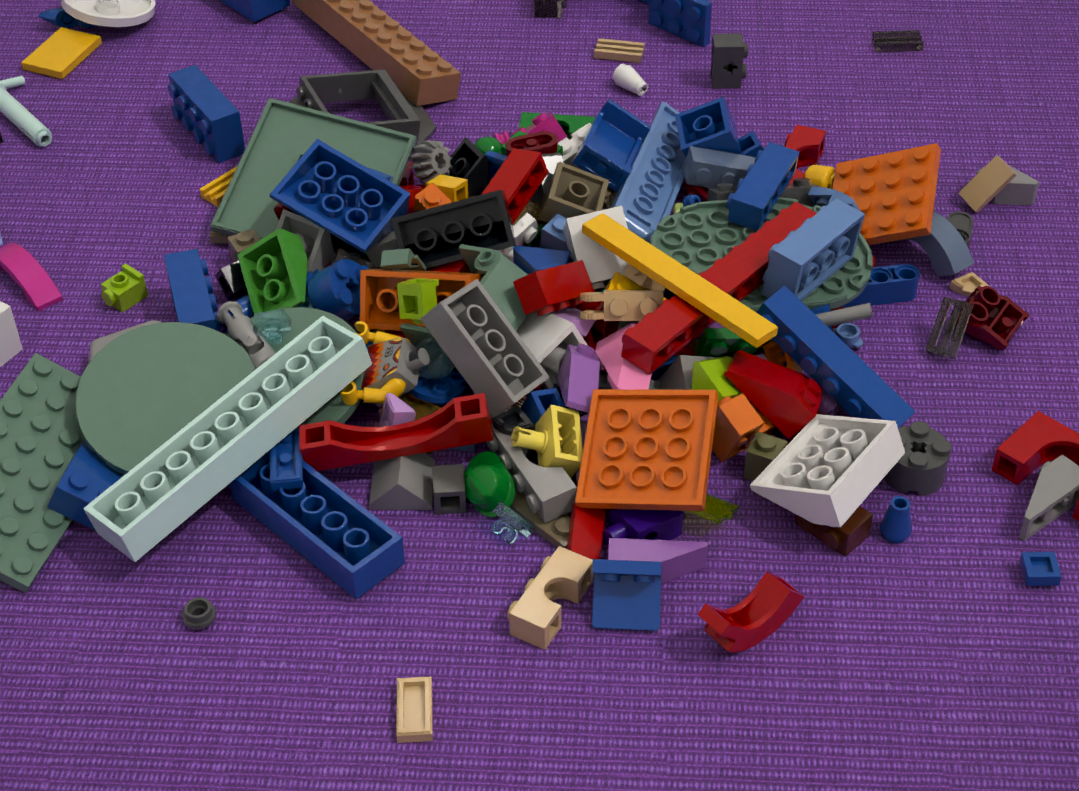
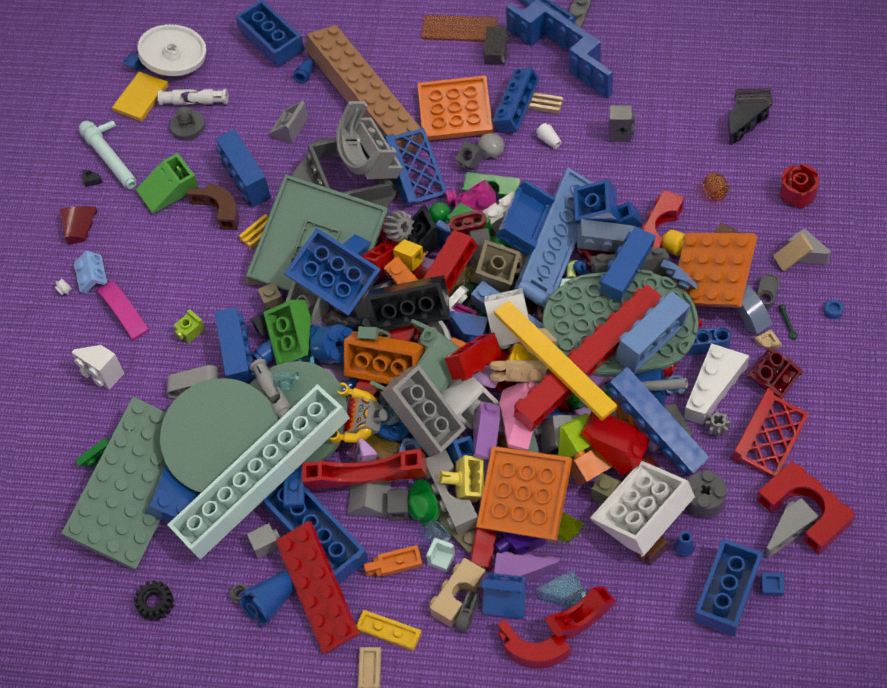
camera: 10 degrees right, 15 degrees up
(63, 640) = (159, 610): none -> black tyre
(98, 134) = (167, 183): none -> bright green slope
(126, 78) = (187, 123): none -> dark grey tile
(150, 49) = (205, 97): none -> white piece
(170, 150) = (221, 199): none -> reddish brown arch
(238, 541) = (263, 540): none -> light grey brick
(241, 613) = (267, 597): none -> blue cone
(273, 73) = (290, 123): none -> light grey slope
(289, 23) = (303, 71): none -> blue cone
(327, 594) = (317, 587): none -> red plate
(398, 76) = (382, 158): none -> light grey piece
(416, 298) = (381, 366): lime brick -> none
(428, 107) = (403, 182): none -> blue fence
(442, 655) = (388, 630): none -> yellow tile
(446, 562) = (394, 562): none -> orange hinge
(499, 56) = (455, 108): none -> orange plate
(510, 419) = (440, 462): black tile -> none
(520, 548) = (440, 554): none -> light aqua panel
(521, 89) = (477, 155): none -> dark grey brick
(550, 90) = (492, 144): none -> light grey hair
(568, 622) = (467, 611): none -> dark grey piece
(581, 44) = (515, 100): none -> blue brick
(680, 675) = (533, 655): none -> red arch
(718, 585) = (563, 590): none -> clear light blue slope
(866, 123) = (715, 186): none -> clear orange head
(893, 57) = (745, 119): none -> black slope
(904, 328) = (715, 378): none -> white wedge
(918, 377) = (717, 424): none -> light grey gear
(959, 331) = (757, 372): clear smoke tile -> none
(975, 572) = (728, 587): none -> blue brick
(976, 372) = (757, 422): none -> red fence
(979, 119) = (799, 185): none -> red brick
(1004, 280) = (793, 335): none -> dark green hinge
(1054, 250) = (833, 309): none -> blue tile

